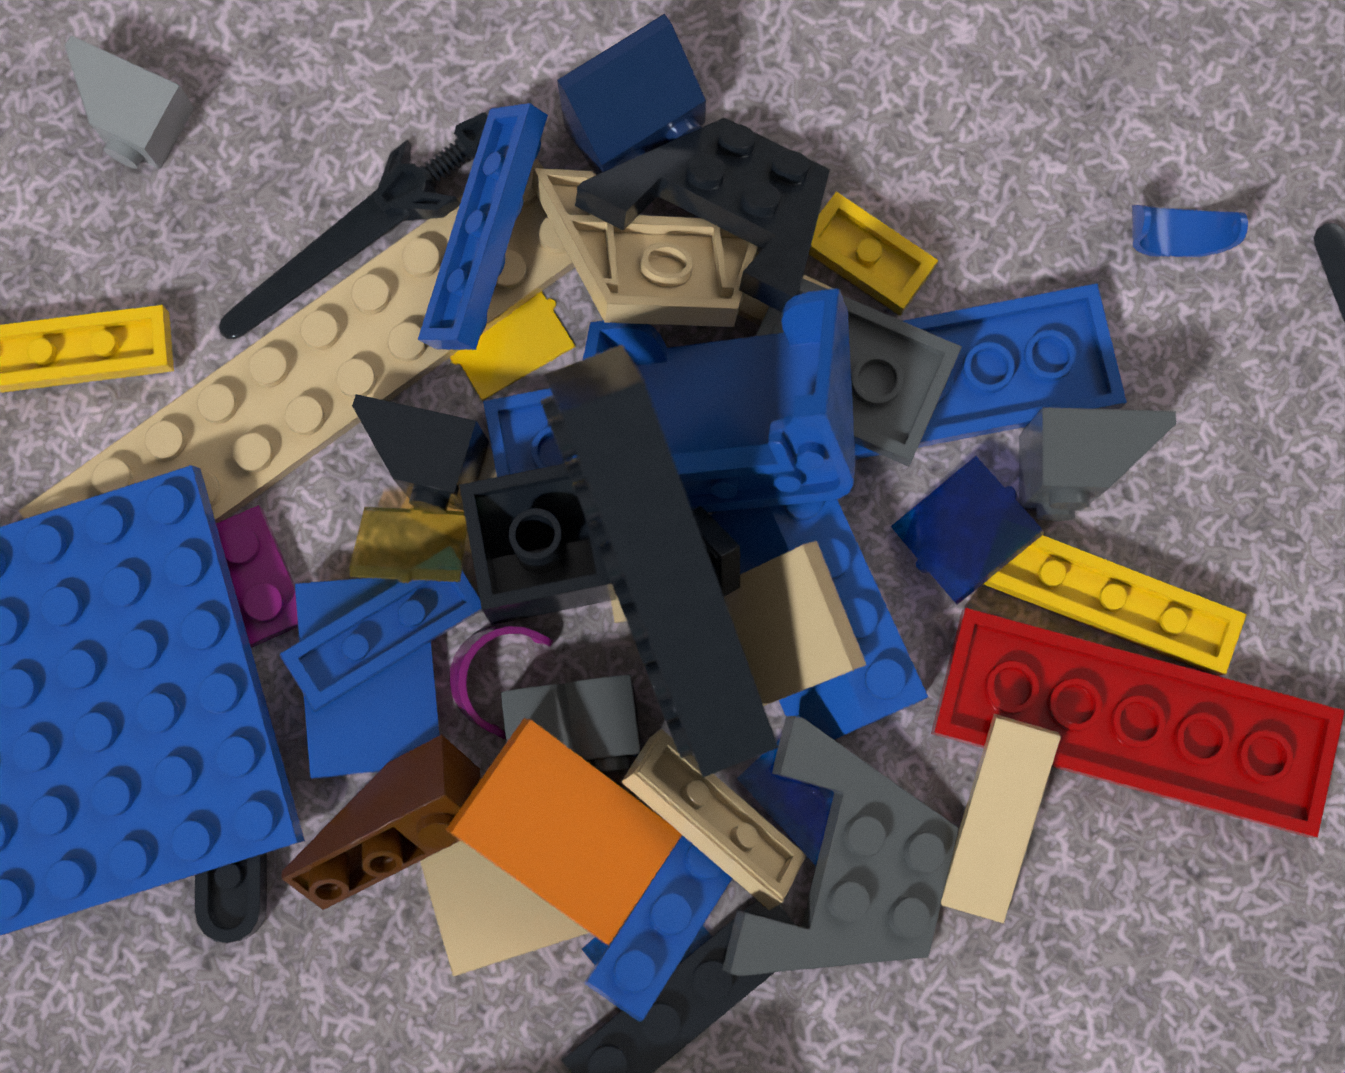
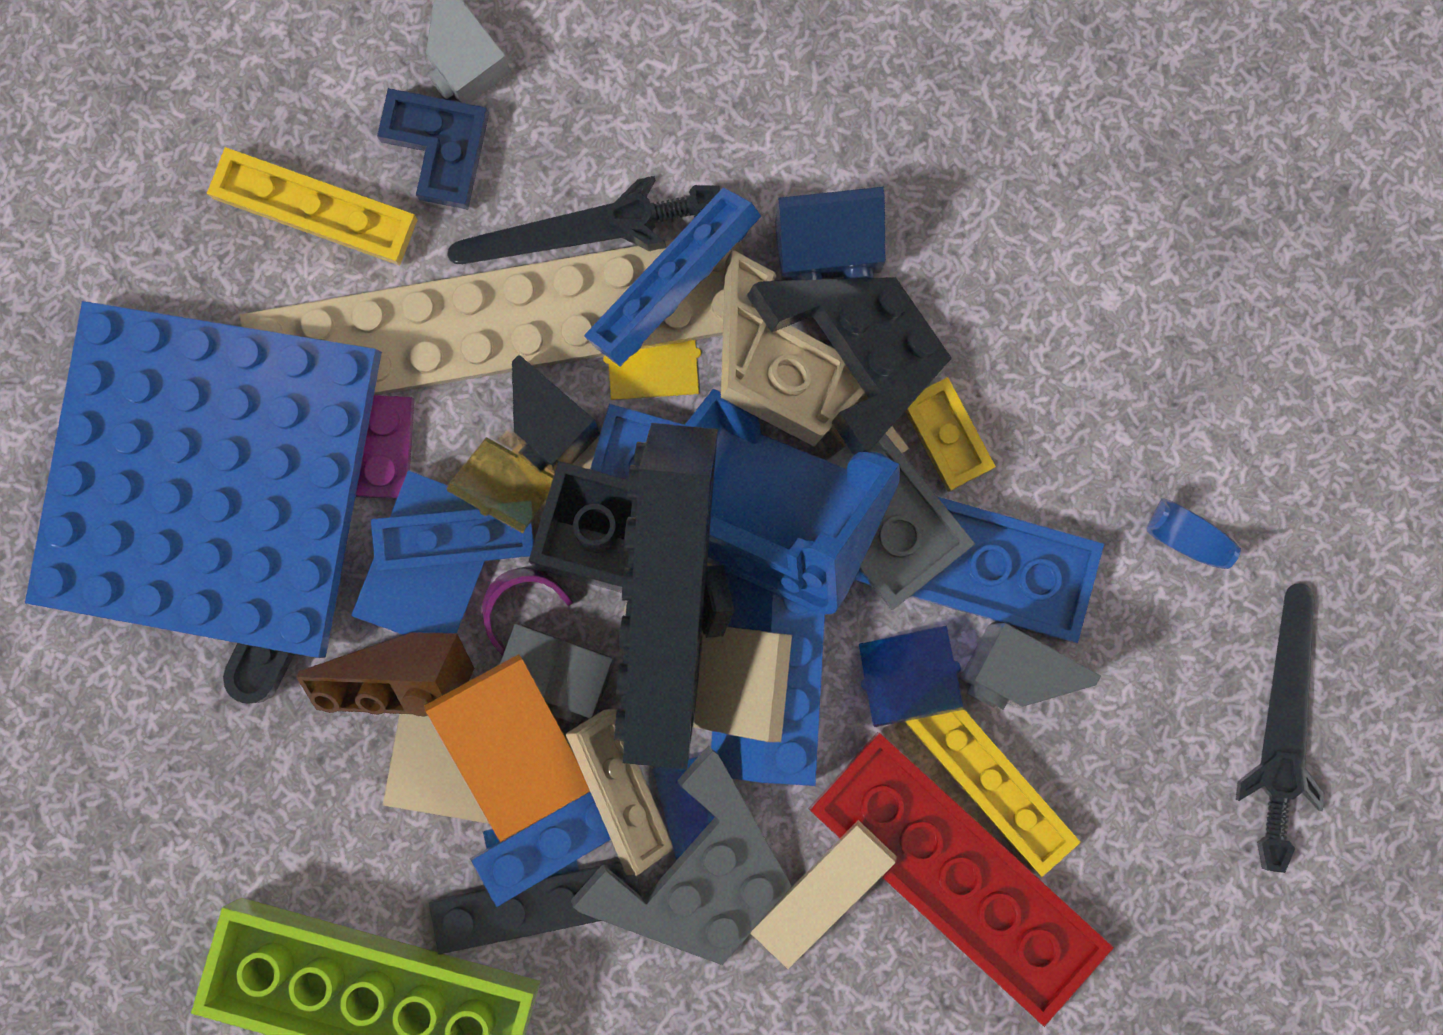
camera: 25 degrees right, 5 degrees up
(151, 201) = (447, 133): none -> dark blue plate

